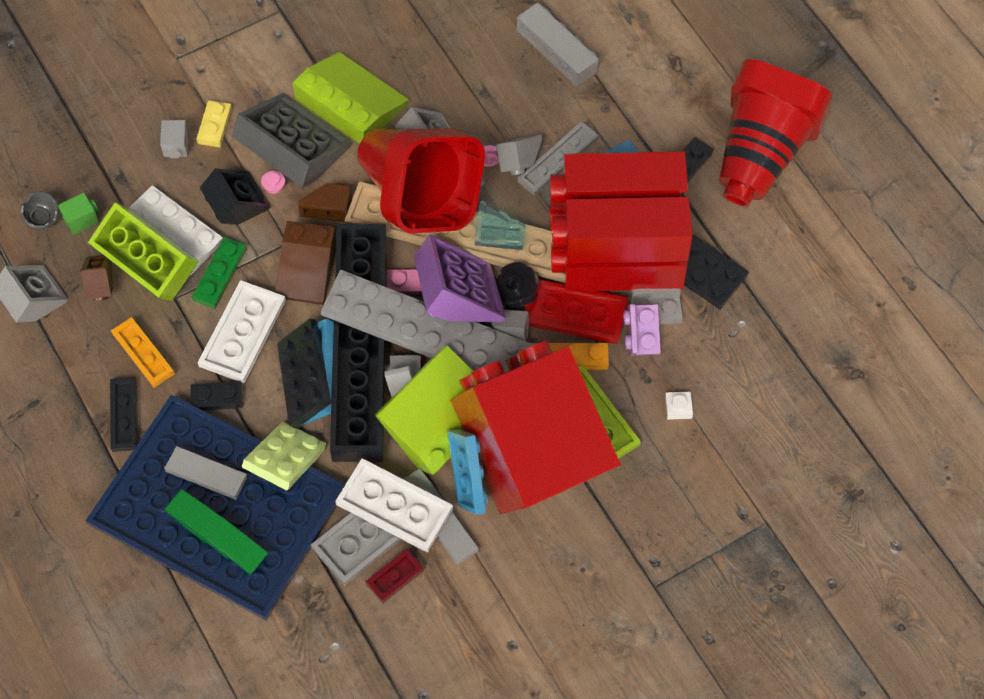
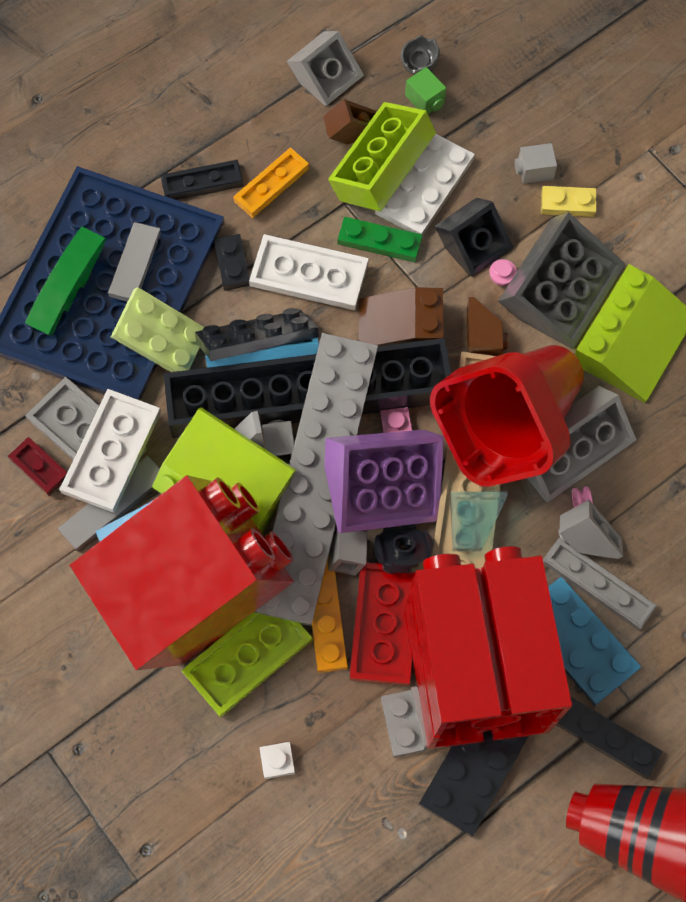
camera: 85 degrees right, 5 degrees up
(643, 329) = (367, 704): lavender bracket -> none

